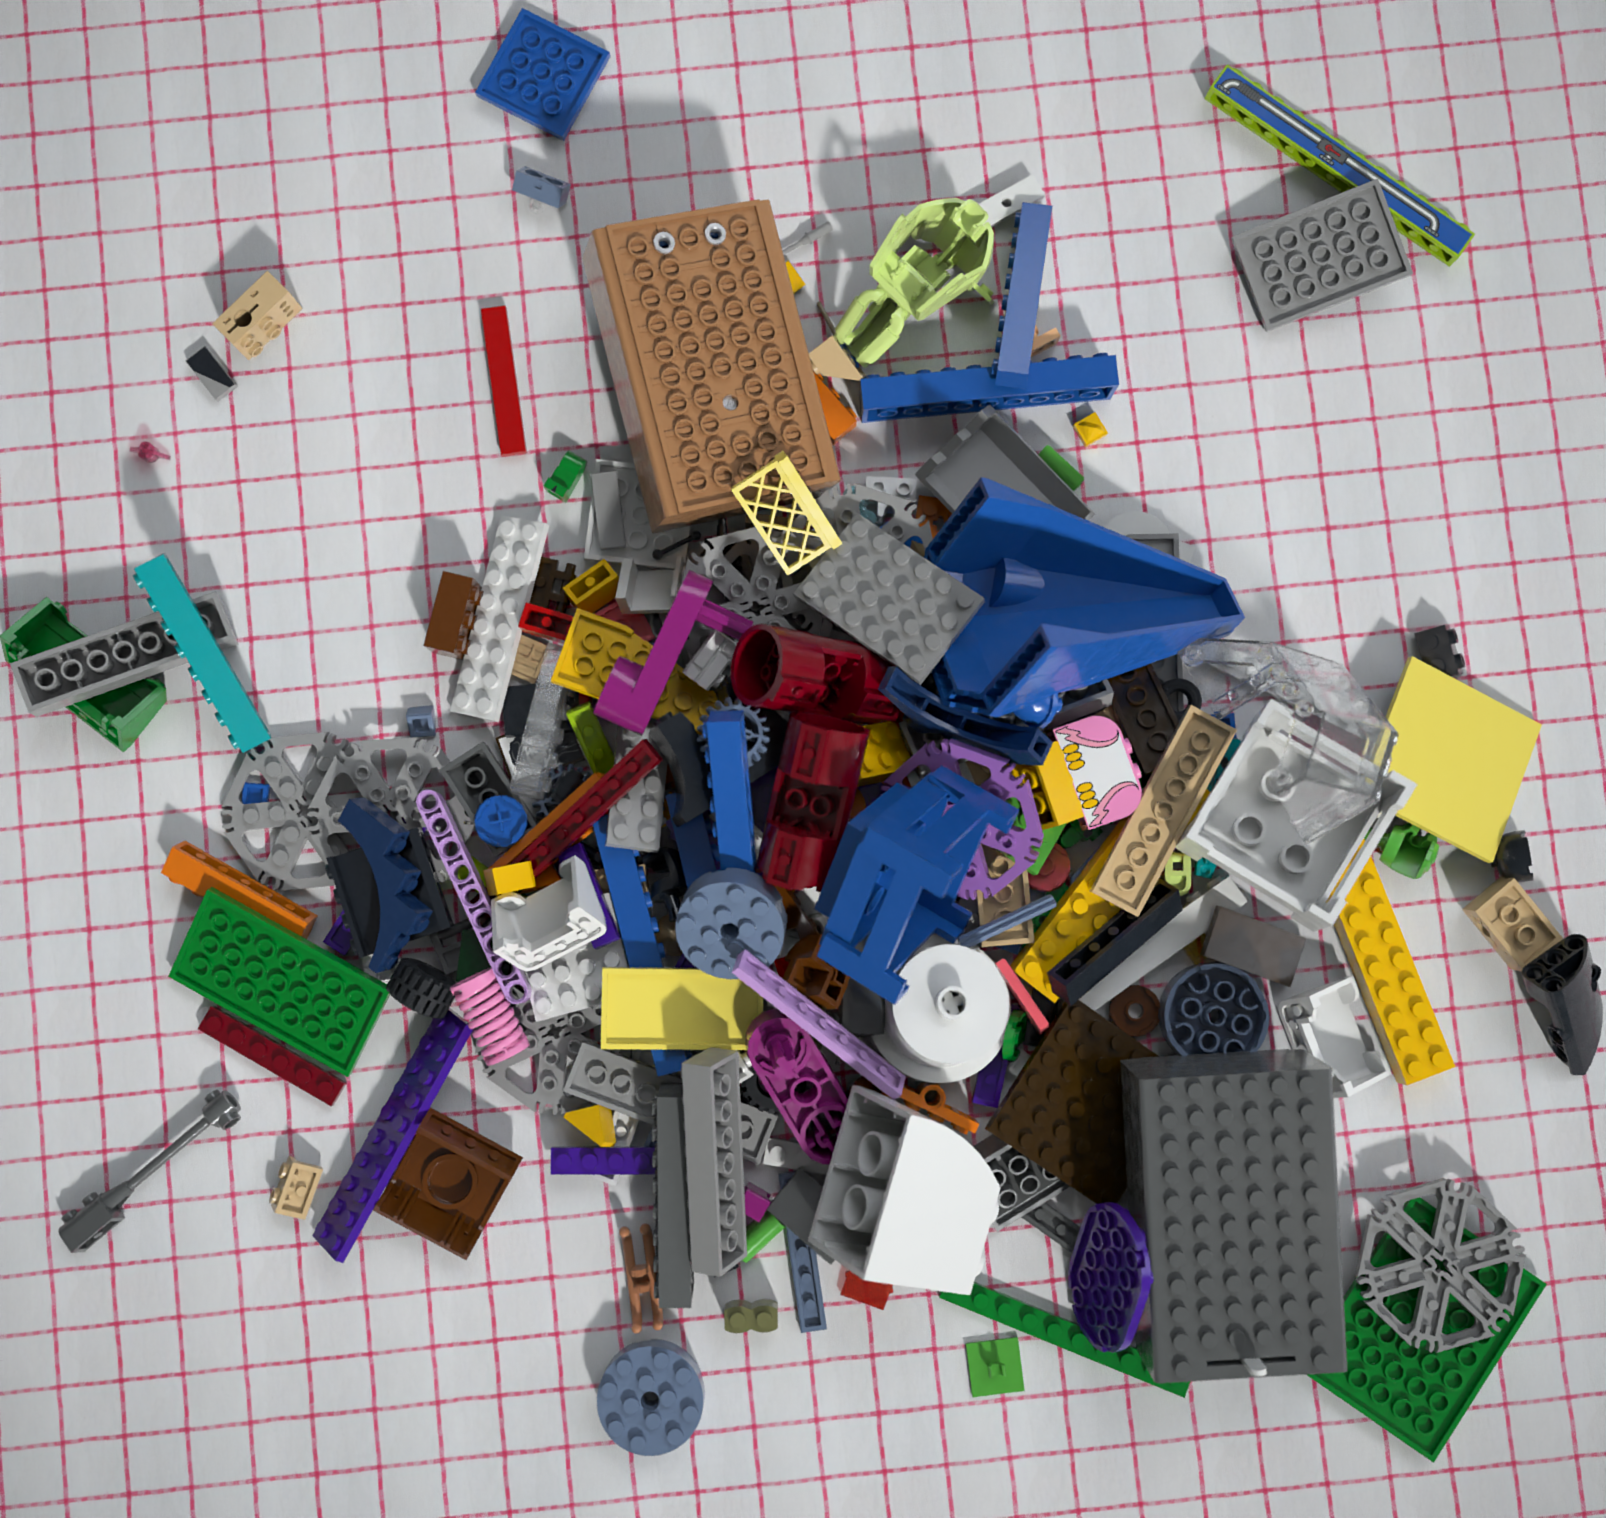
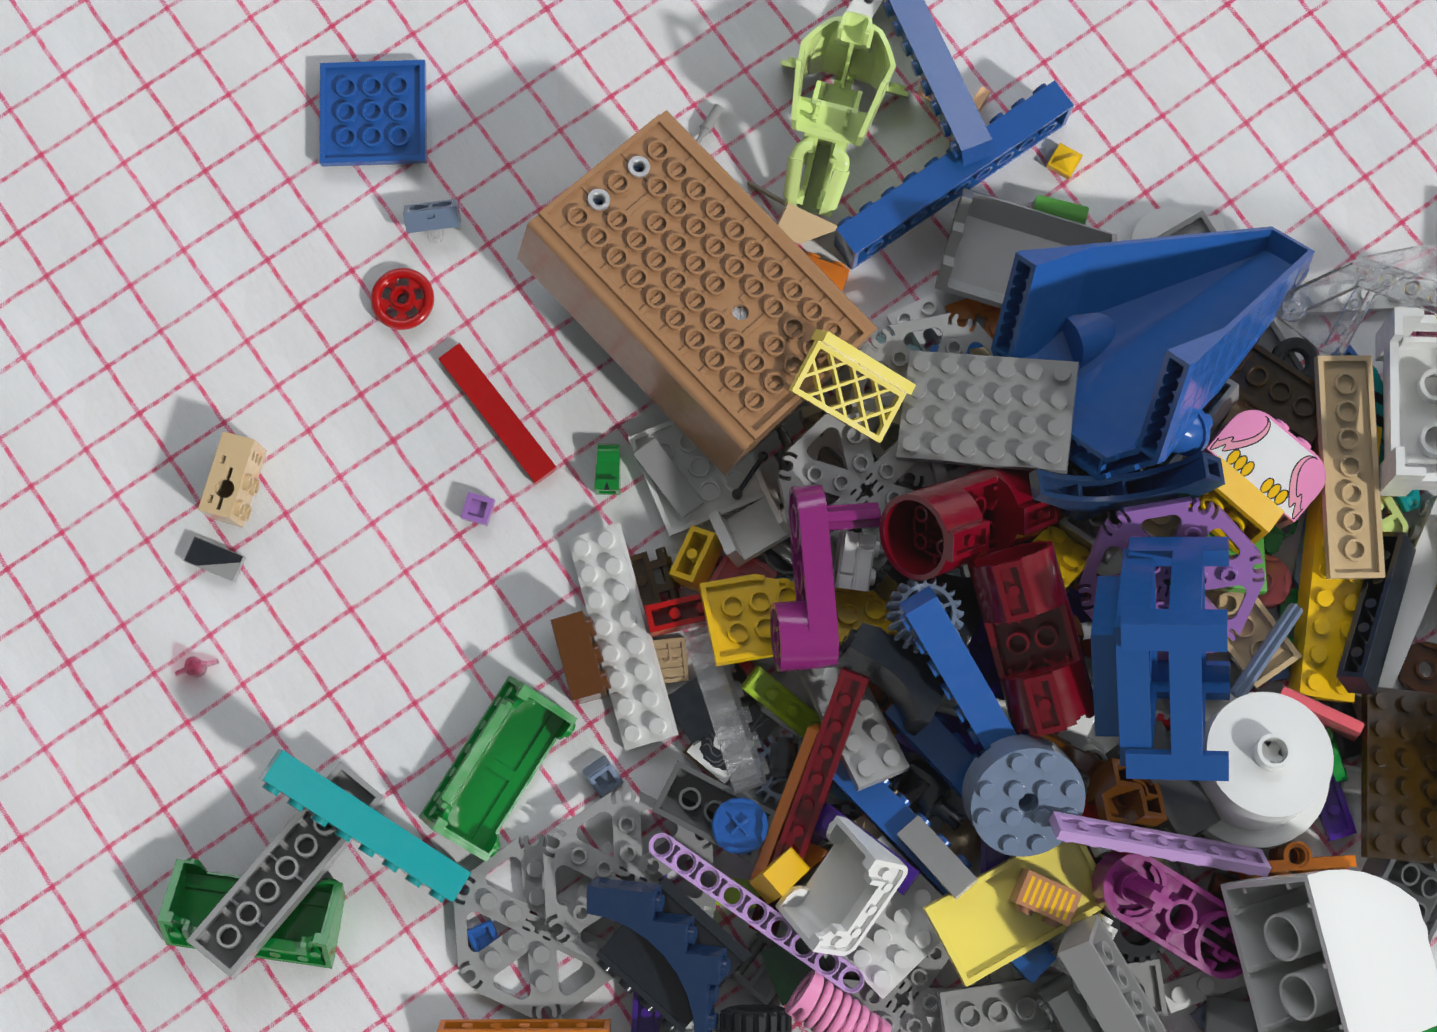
camera: 25 degrees left, 5 degrees down
(338, 667) = (495, 767): none -> green windscreen
(443, 450) = (478, 509): none -> medium lavender plate
(478, 222) = (389, 281): none -> red plate
(637, 934) = (937, 857): none -> light grey tile
(703, 1015) = (1044, 897): none -> nougat brick

